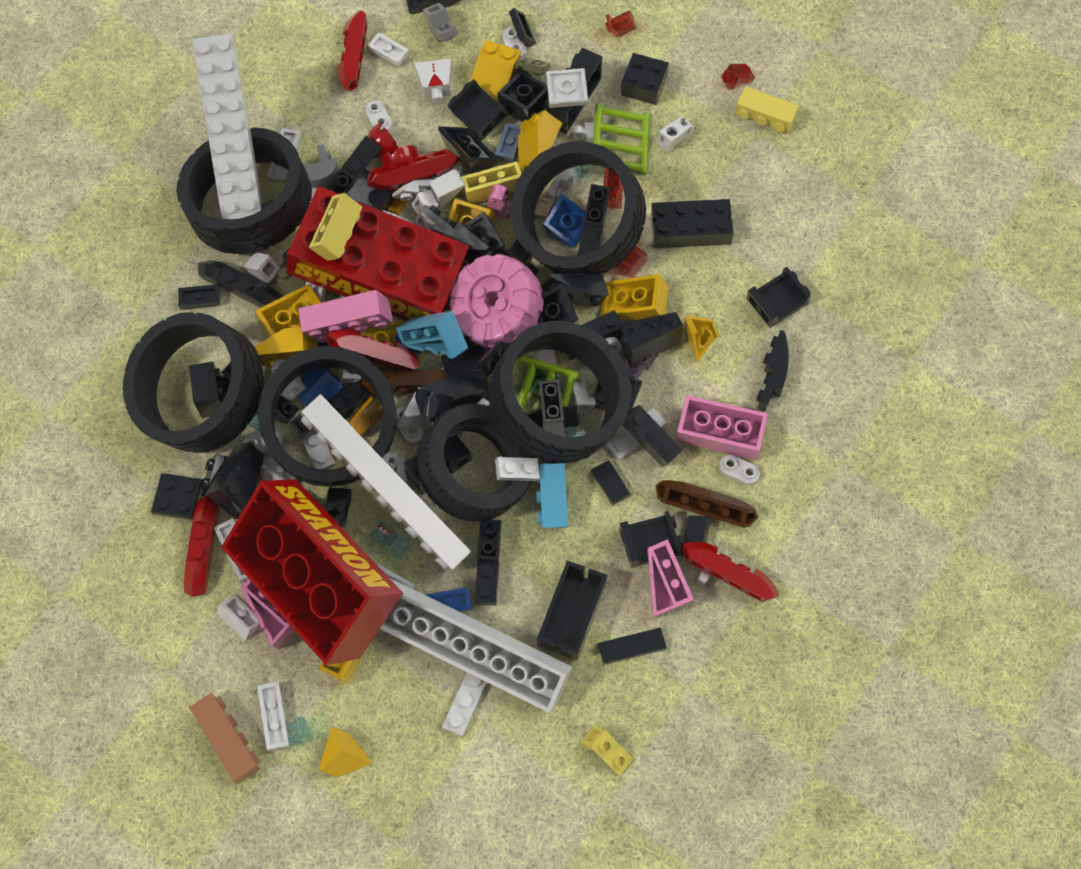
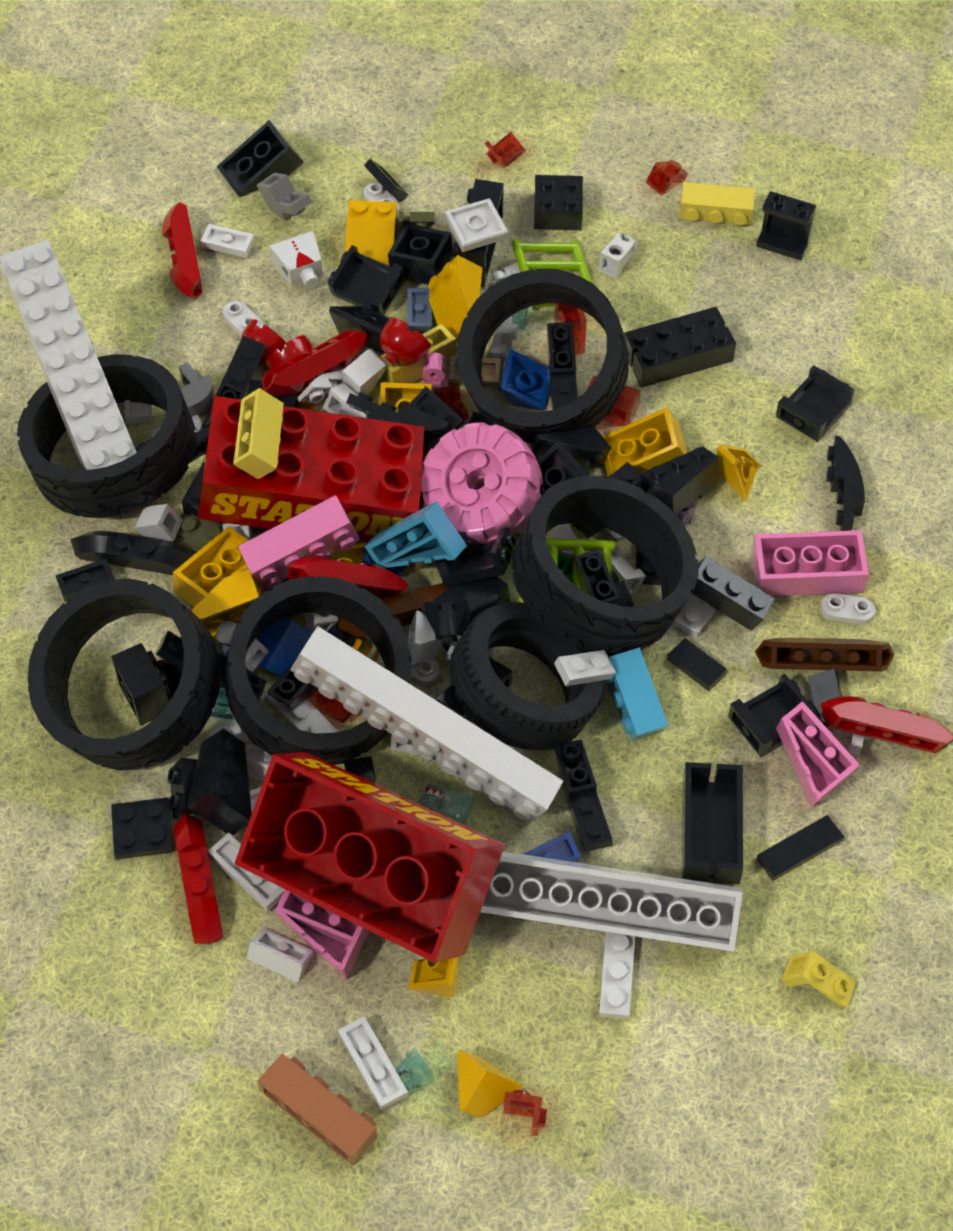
camera: 20 degrees left, 10 degrees down
(364, 777) = (524, 1104): none -> clear red bracket
(477, 173) = (402, 344): none -> red cylinder
(504, 226) = (451, 397): none -> clear red bracket
(810, 144) = (786, 225): none -> black panel

